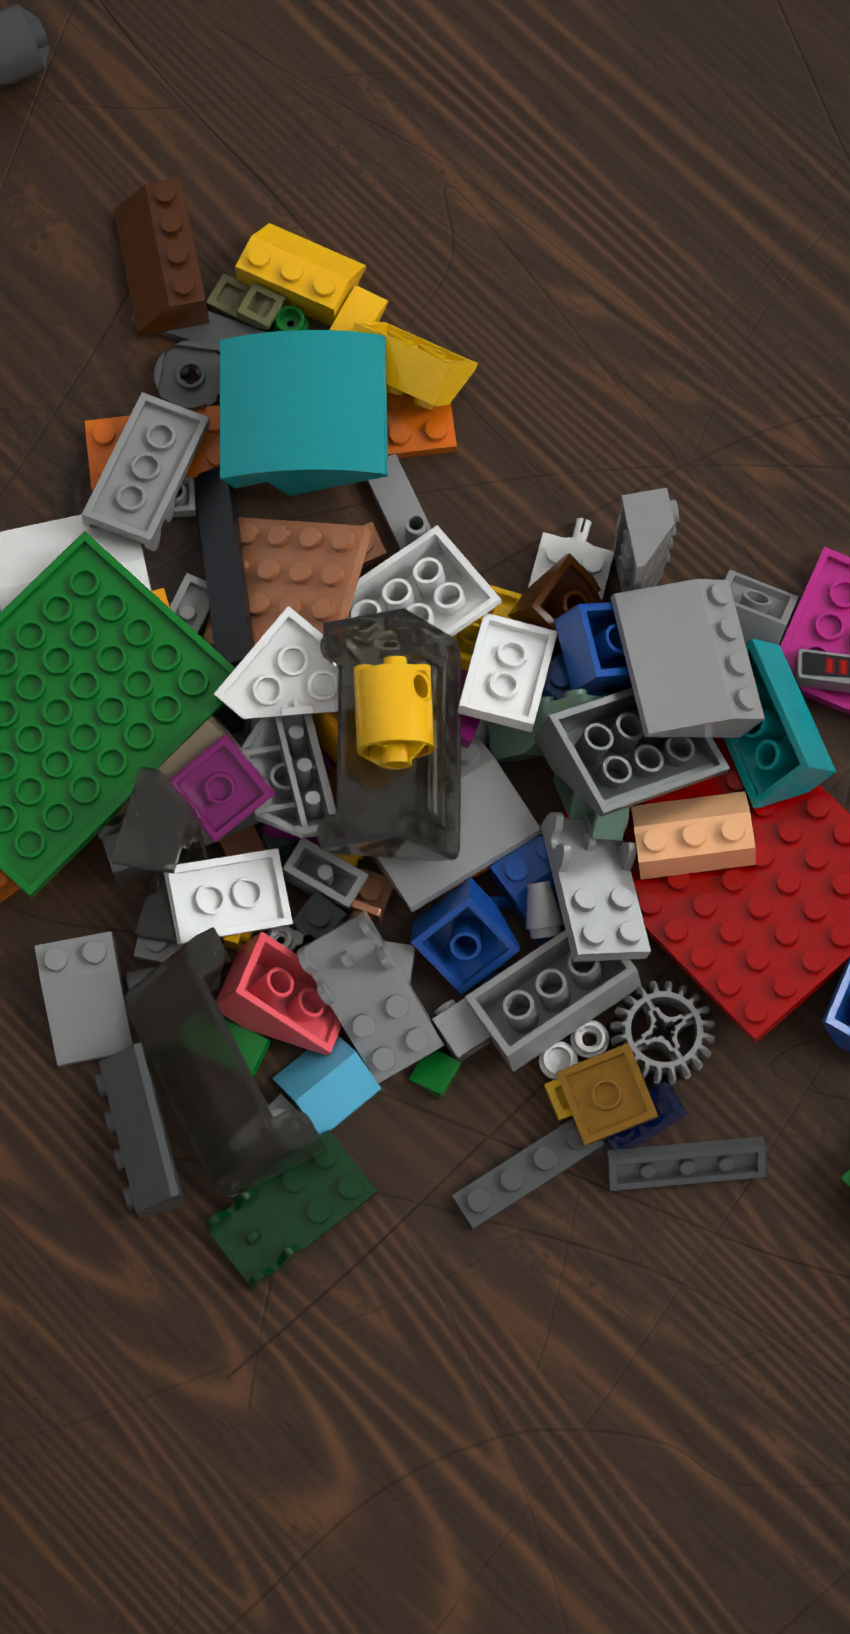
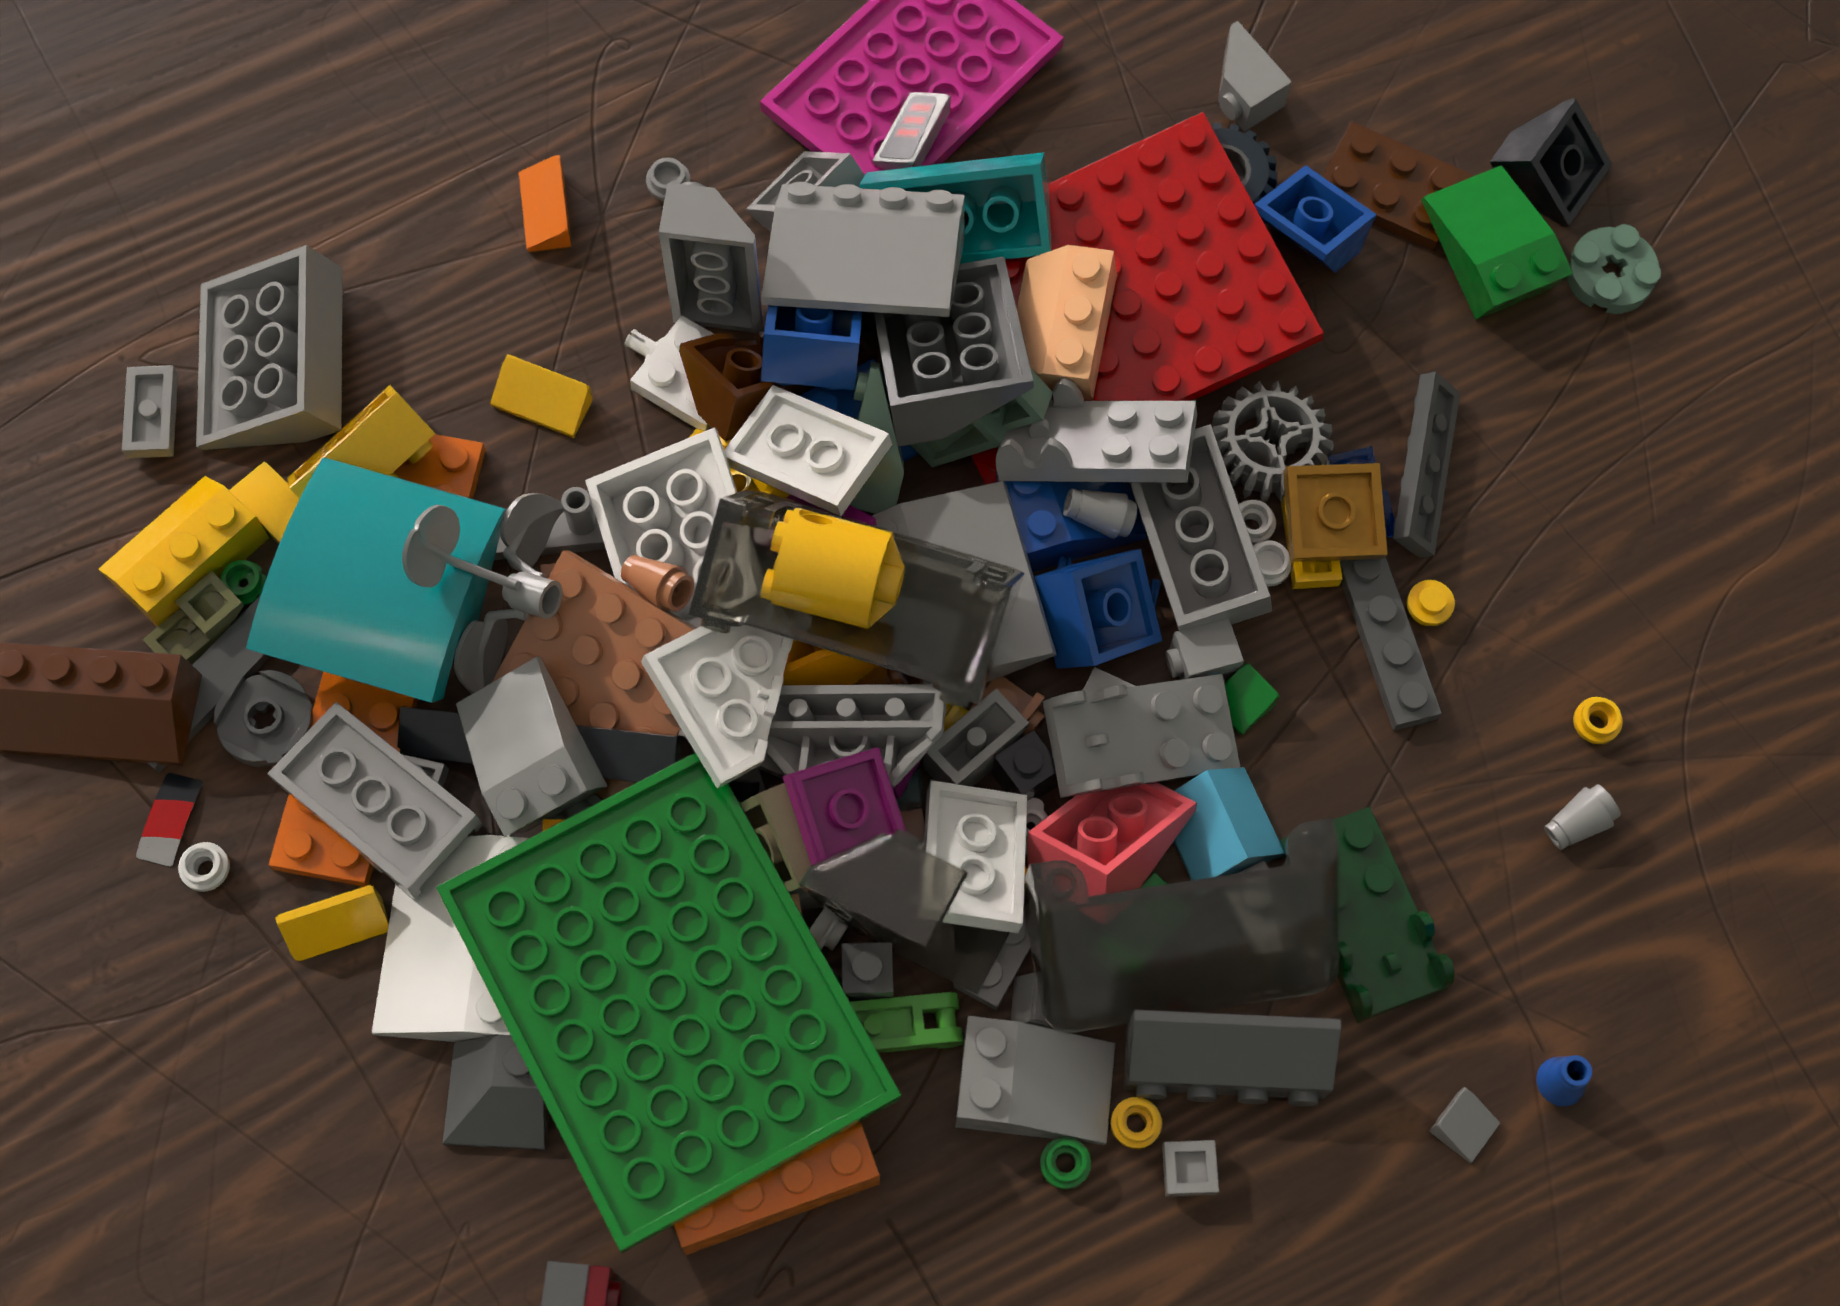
camera: 75 degrees left, 5 degrees down
(25, 1031) = (1073, 1149): none -> green plate
(54, 1129) = (1190, 1168): none -> light grey plate
(56, 480) = (333, 923): none -> yellow slope
(67, 1076) = (1142, 1108): none -> yellow plate
(68, 370) = (194, 857): none -> white plate
(99, 888) = (899, 1021): none -> bright green plate
(101, 343) = (168, 819): none -> sticker
(147, 1326) = (1465, 1125): none -> light grey slope
(210, 1400) = (1557, 1085): none -> blue cone
(212, 558) = (527, 749): none -> light grey slope
(365, 597) = (659, 582): none -> nougat cone
(379, 499) = (525, 534): none -> light grey plant
(401, 208) = (150, 411): none -> light grey plate
(420, 1360) = (1583, 817): none -> light grey cone
(476, 272) = (271, 353): none -> light grey slope
(509, 474) = (541, 396): none -> yellow slope
(515, 1344) = (1606, 711): none -> yellow plate
(566, 1197) = (1430, 603): none -> yellow plate
(675, 420) = (545, 206): none -> orange slope
(731, 502) = (665, 171): none -> light grey plate

